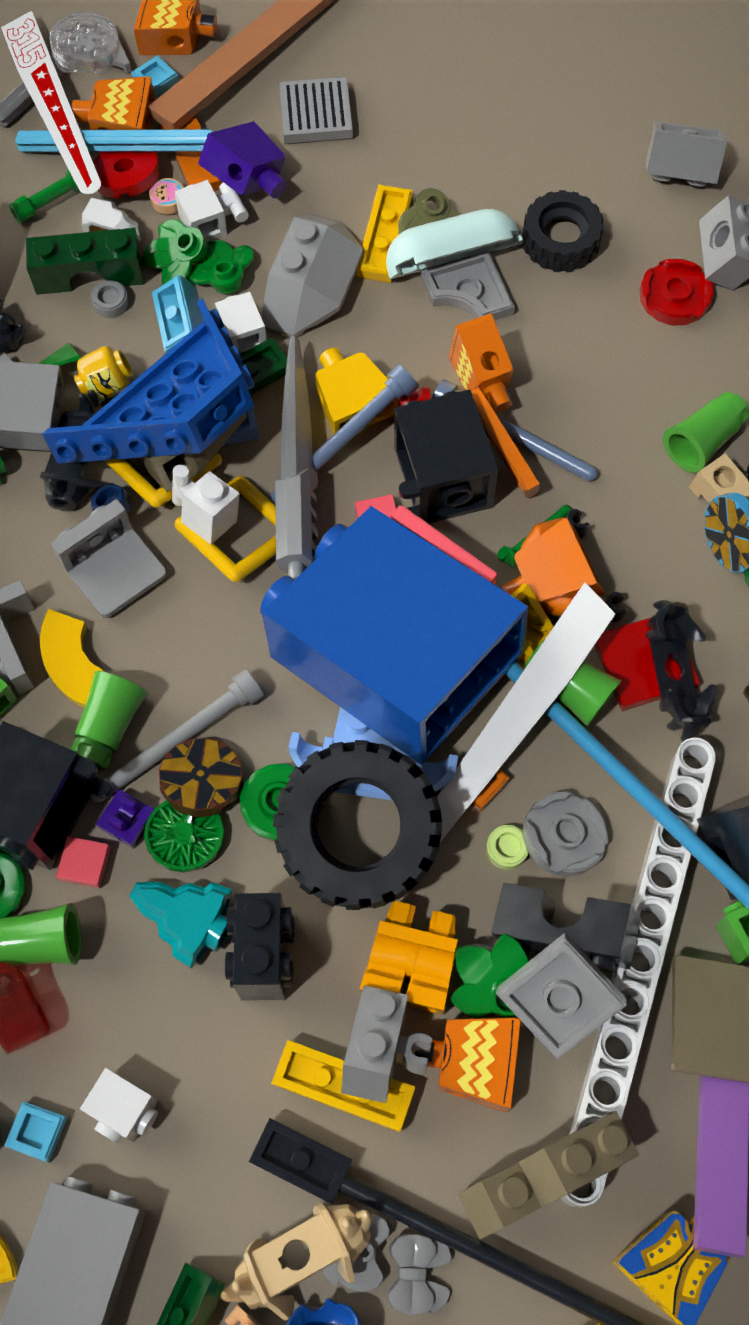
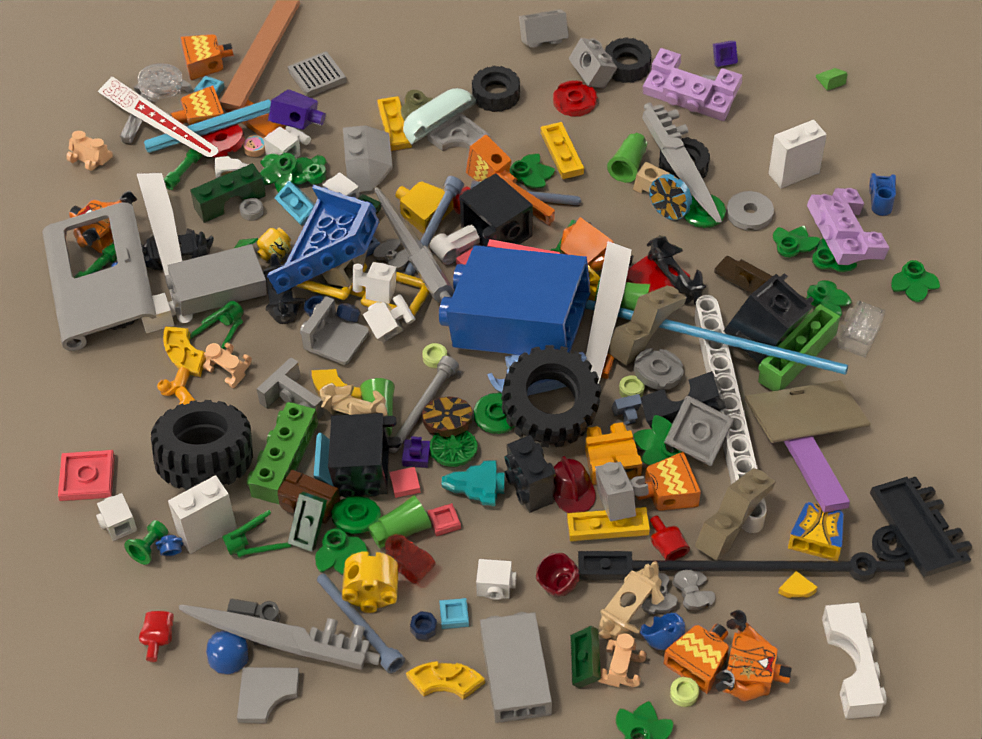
camera: 25 degrees left, 15 degrees down
(51, 682) = (341, 400): none -> tan piece
(107, 955) = (444, 519): none -> coral tile
(149, 533) = (348, 312): none -> dark blue tile
(189, 572) = (385, 320): none -> white brick
(215, 1149) = (557, 574): none -> dark red hair
(240, 655) = (433, 353): none -> yellowish green tile
(261, 449) = (387, 252): none -> light grey piece
(326, 985) = (573, 486): none -> dark red piece
(355, 478) = (449, 247): none -> white piece
(424, 1158) = (668, 540): none -> red piece
(479, 884) = (627, 407): none -> sand blue tile
(550, 395) = (531, 171): none -> green plate
(582, 745) = (647, 317): none -> dark tan arch
(609, 377) = (562, 150): none -> yellow plate

